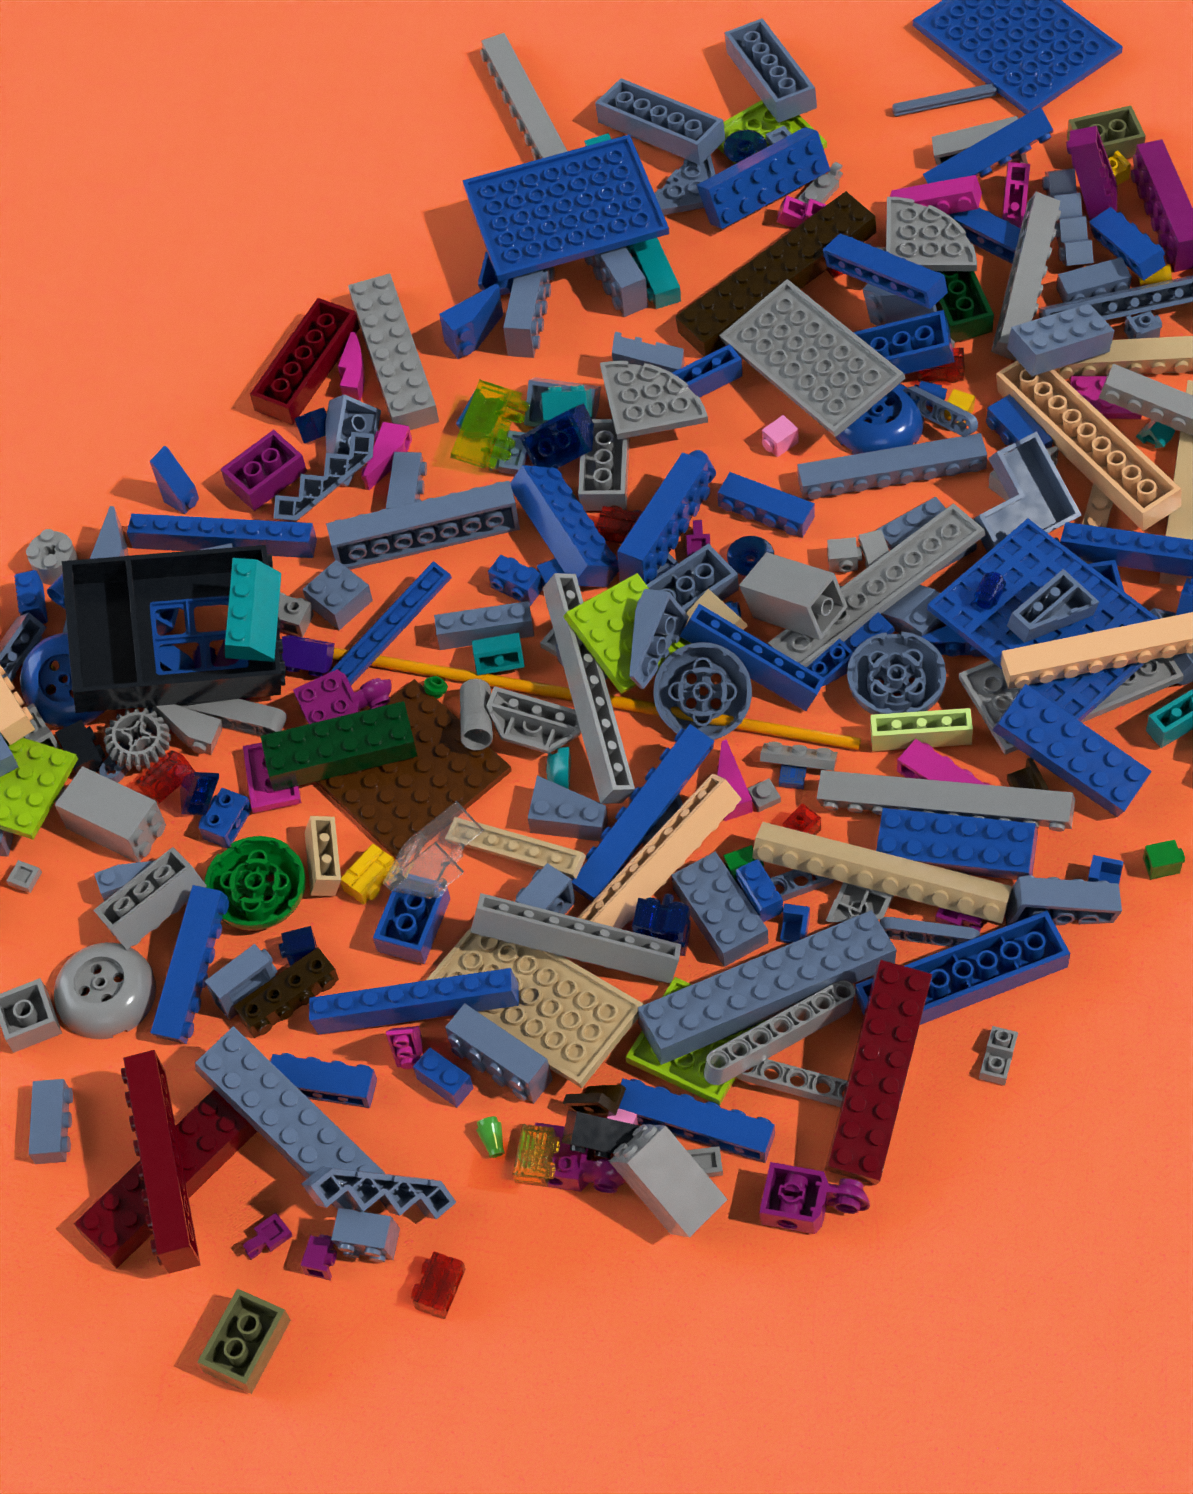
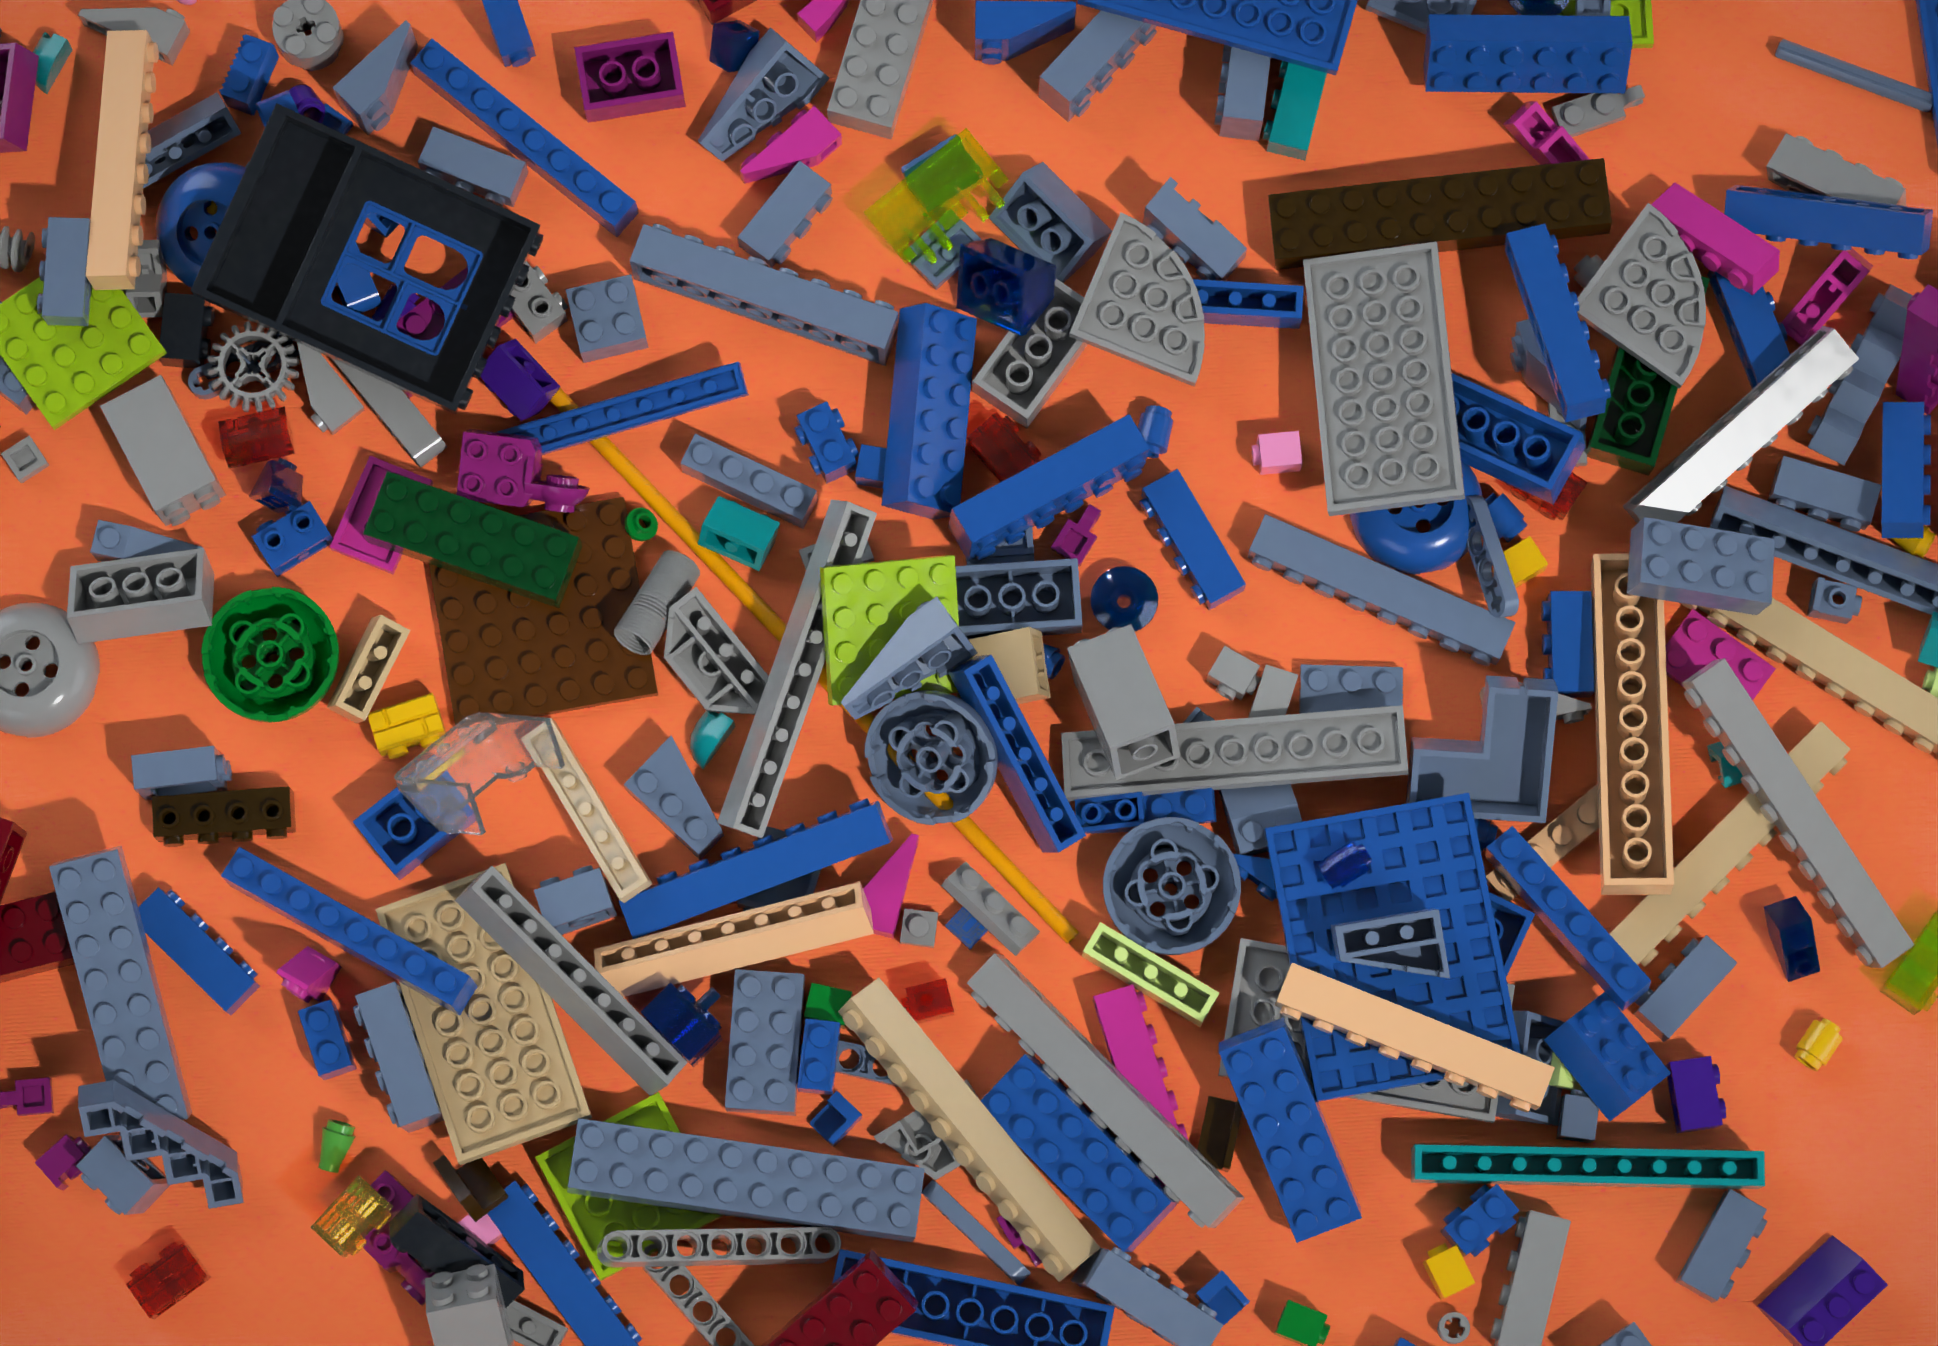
camera: 25 degrees right, 20 degrees up
(190, 964) = (134, 713): blue brick -> none
(252, 611) = (466, 312): teal slope -> none
(297, 944) = (273, 765): clear blue brick -> none
(316, 488) = (676, 152): sand blue brick -> none
(559, 400) = (1047, 236): teal brick -> none

